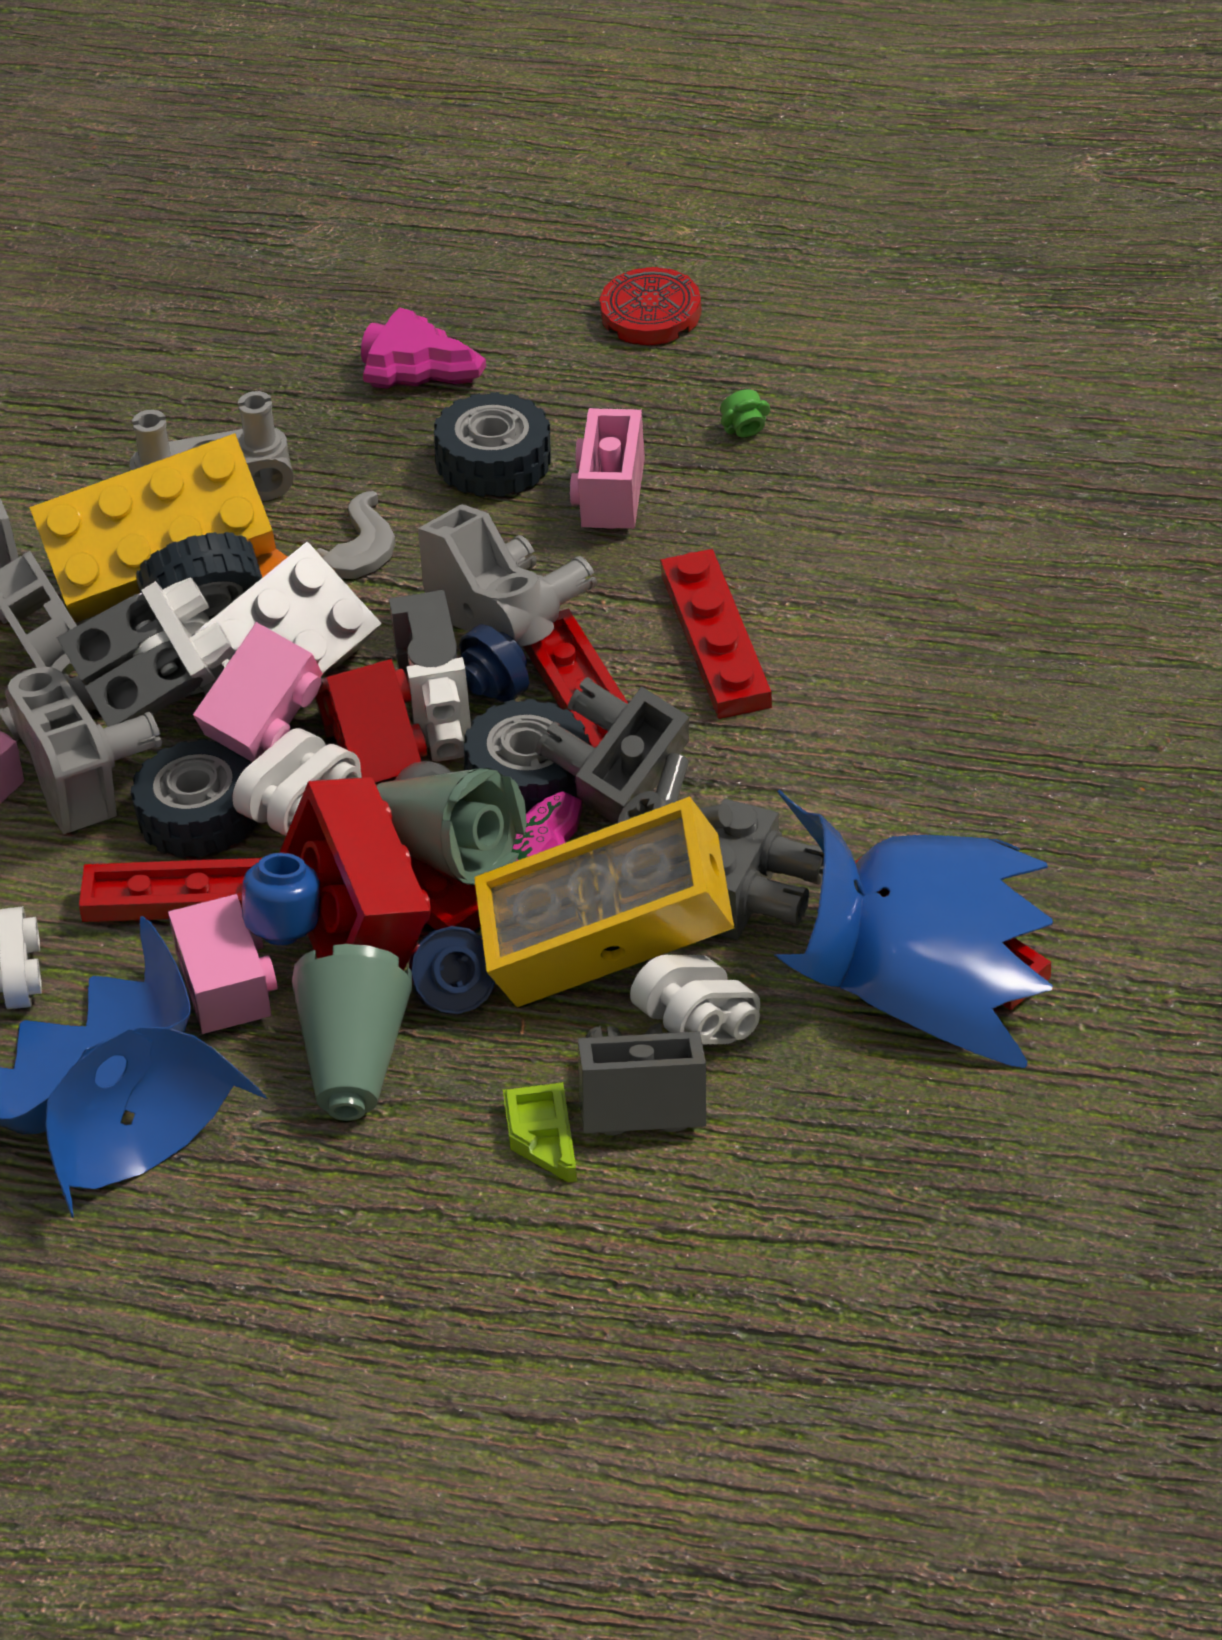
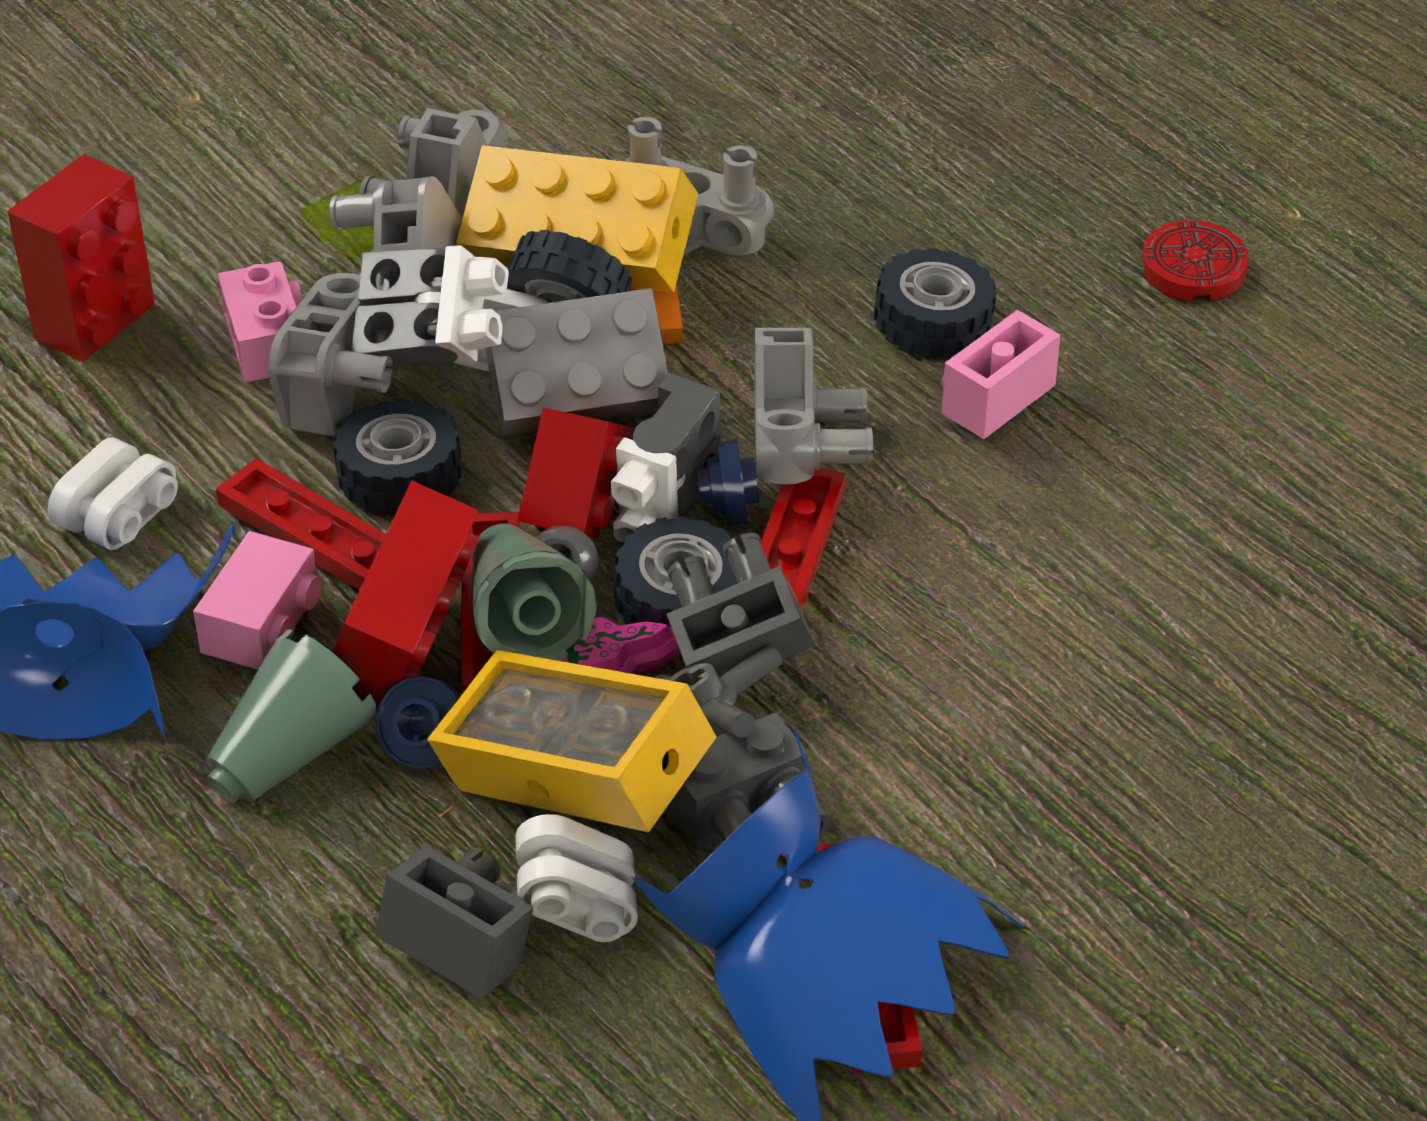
camera: 35 degrees right, 0 degrees up
(259, 693) = (486, 392): bright pink brick -> none
(276, 780) = (471, 472): white brick -> none
(281, 898) = (326, 571): blue head -> none
(370, 548) = (737, 336): light grey piece -> none
(414, 353) = (952, 194): dark pink rock -> none
(541, 1128) = (353, 910): lime tile -> none
(716, 634) = (956, 569): red plate -> none
(744, 413) = (1175, 392): bright green plate -> none

